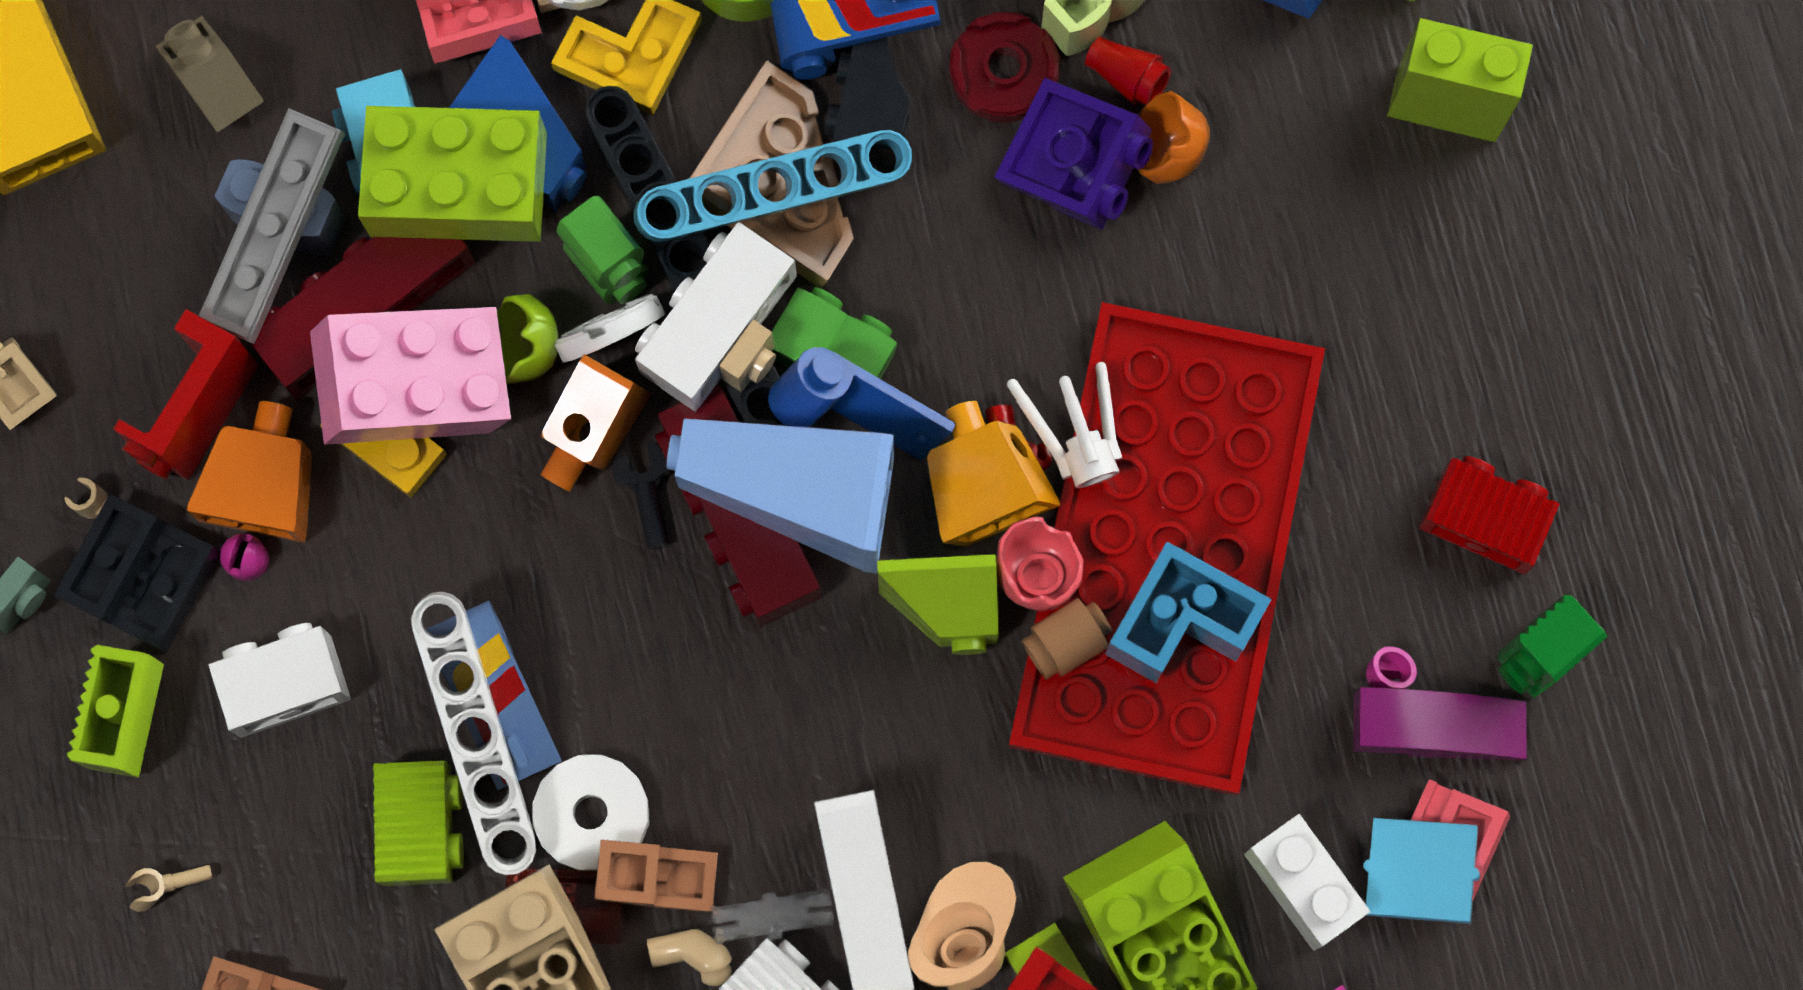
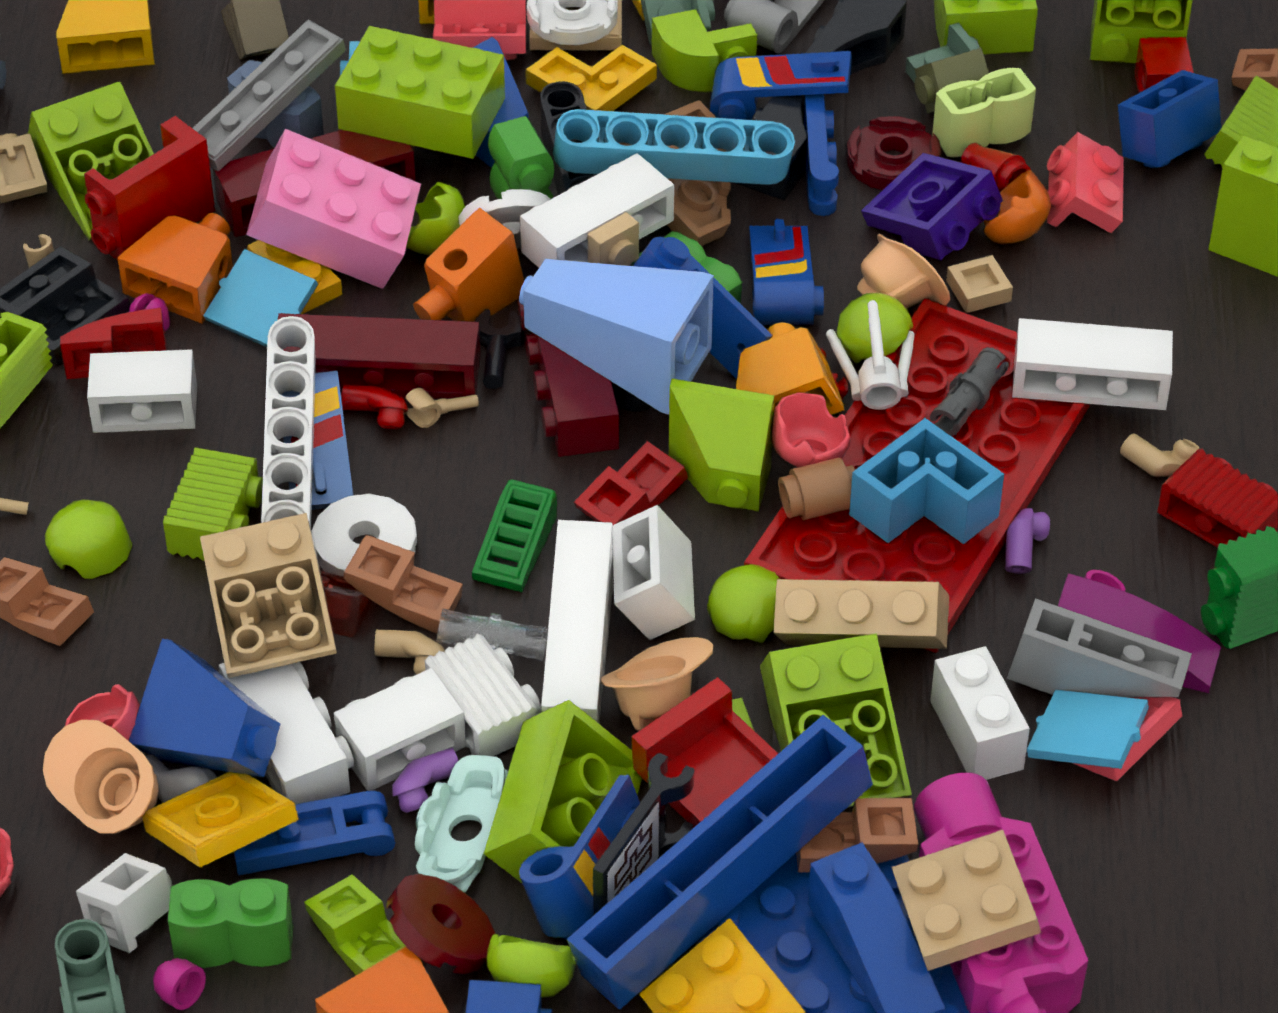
camera: 15 degrees right, 30 degrees down
(104, 343) = (85, 134): none -> lime slope
(209, 629) = (118, 333): none -> red slope
(294, 902) = (88, 538): none -> lime hair
(363, 504) = (256, 295): none -> medium azure piece
(525, 554) = (398, 353): none -> dark red brick
(546, 614) = (376, 399): none -> red arm
(597, 611) = (427, 410): none -> tan hand
(753, 719) = (522, 505): none -> green slope
(855, 662) = (637, 486): none -> red slope
(920, 795) = (653, 572): none -> white brick
(927, 106) = (821, 156): none -> blue plate
(932, 297) = (783, 276): none -> blue door
(1026, 791) = (744, 603): none -> lime hair
(1055, 353) = (854, 325): none -> lime hair
(1058, 287) = (902, 274): none -> light nougat piece
(1153, 255) = (979, 284): none -> tan plate
(1157, 800) = (831, 610): none -> tan brick
(1189, 442) = (969, 391): none -> dark grey pin
(1233, 64) = (1087, 182): none -> coral bracket
(1288, 617) = (1020, 537): none -> medium lavender arm
(1314, 368) = (1092, 364): none -> white brick
(1412, 459) = (1155, 461): none -> tan arm
(1412, 782) = (1093, 657): none -> light grey slope

